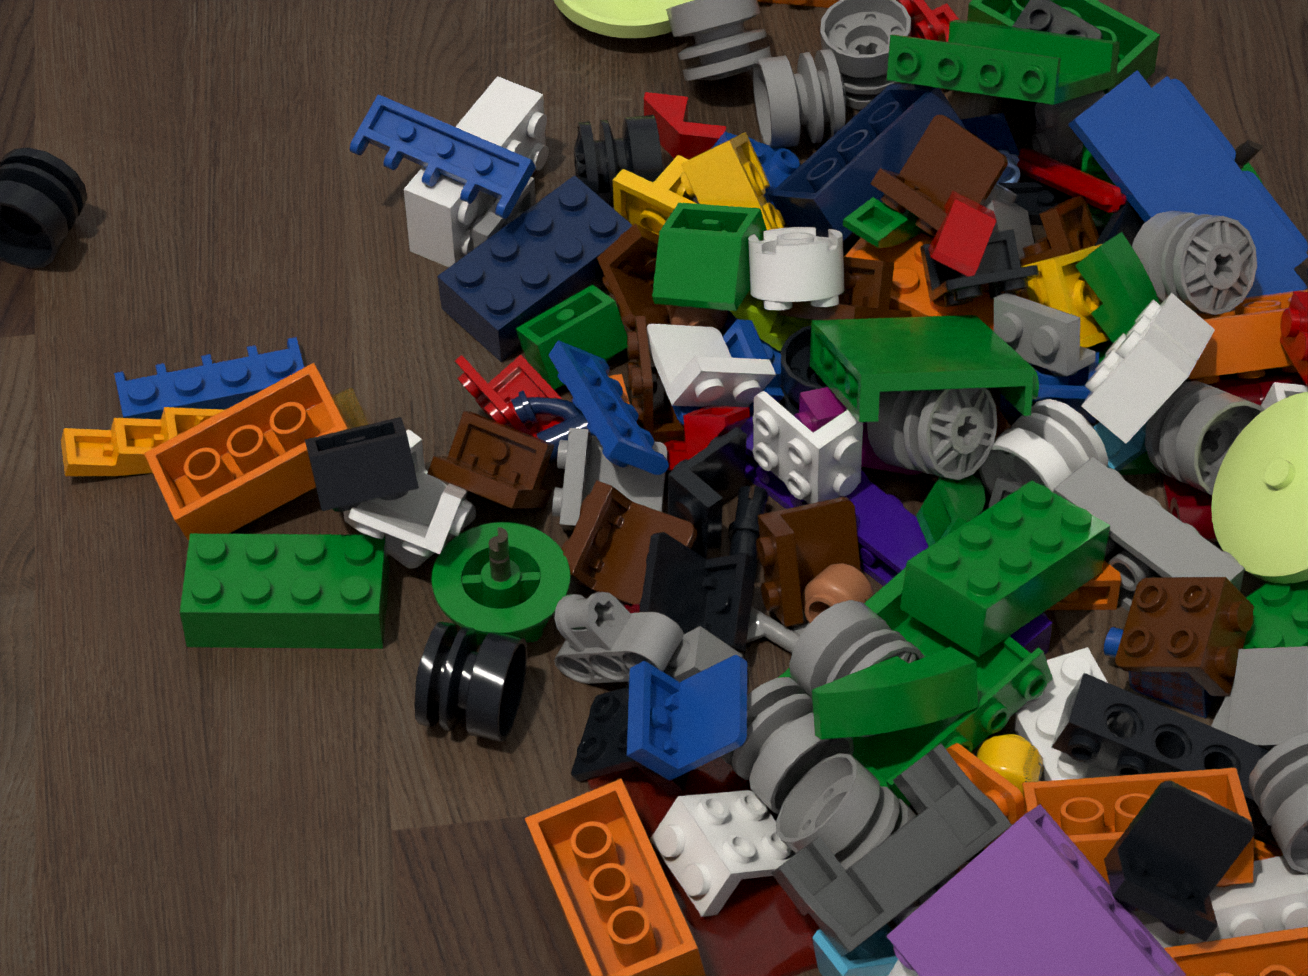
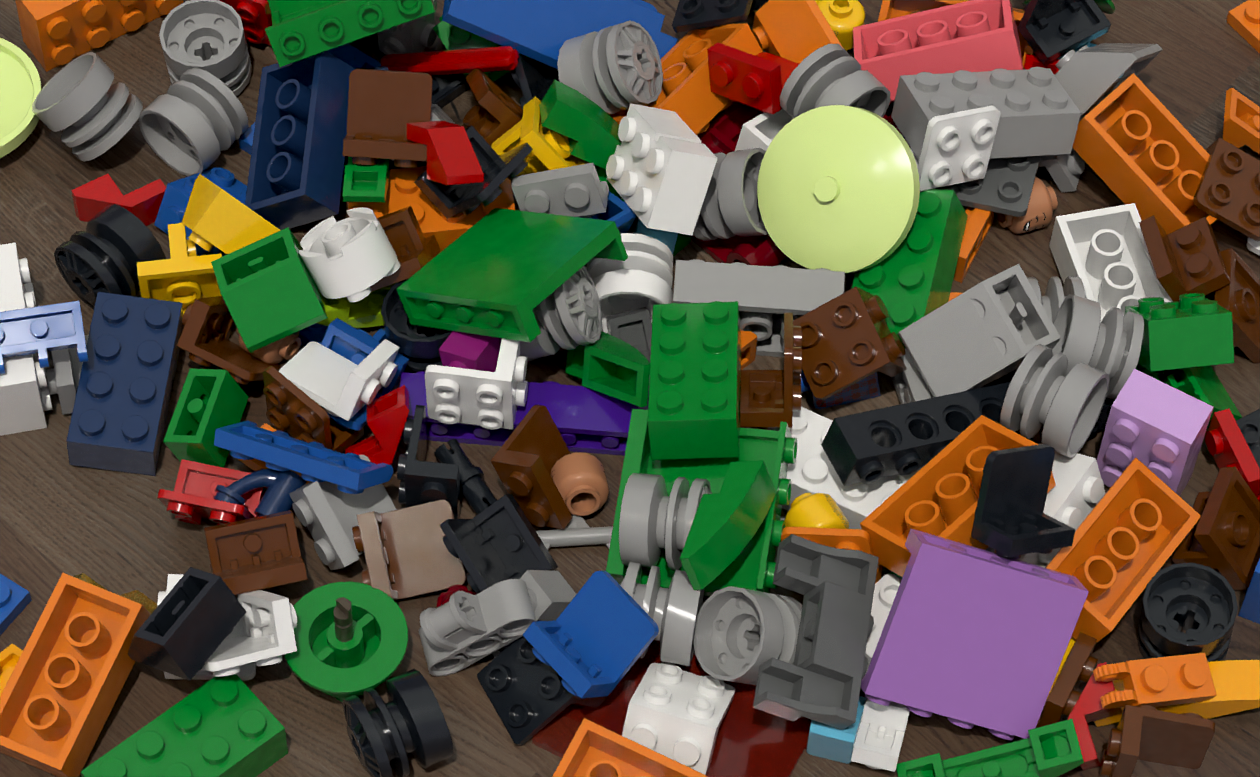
camera: 45 degrees left, 5 degrees up
(1083, 622) = (774, 394): none -> reddish brown bracket

